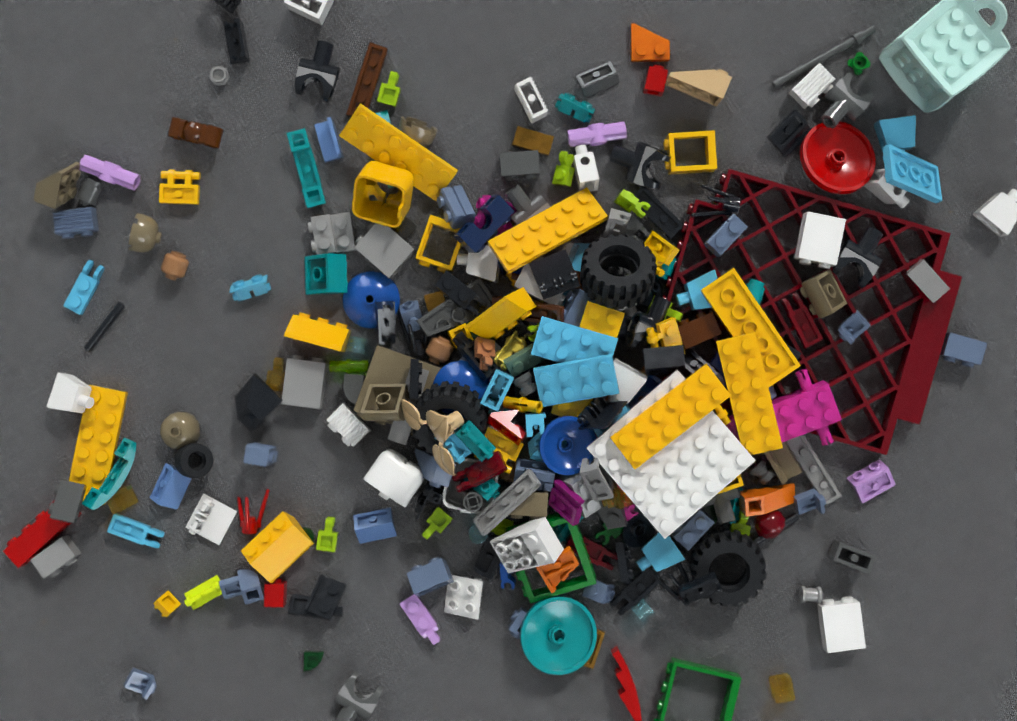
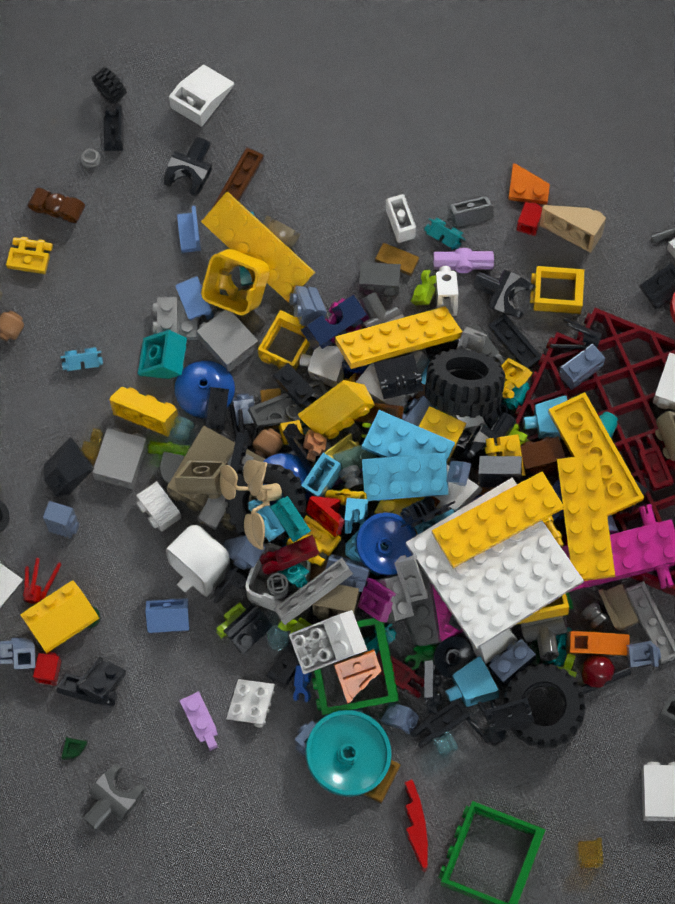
camera: 10 degrees right, 20 degrees down
(306, 168) = (161, 252): teal slope -> none
(327, 538) = (114, 619): lime plate -> none
(342, 211) = (192, 299): none -> medium blue panel
(389, 92) = (259, 194): lime plate -> none
(430, 576) = (218, 673): sand blue brick -> none
(450, 530) = (248, 628): none -> black plate
(619, 500) = (435, 607): clear yellow plate -> none
(628, 375) = (458, 473): none -> sand blue bracket
(630, 203) = (487, 325): lime plate -> none
(810, 594) = (634, 754): light grey bush -> none

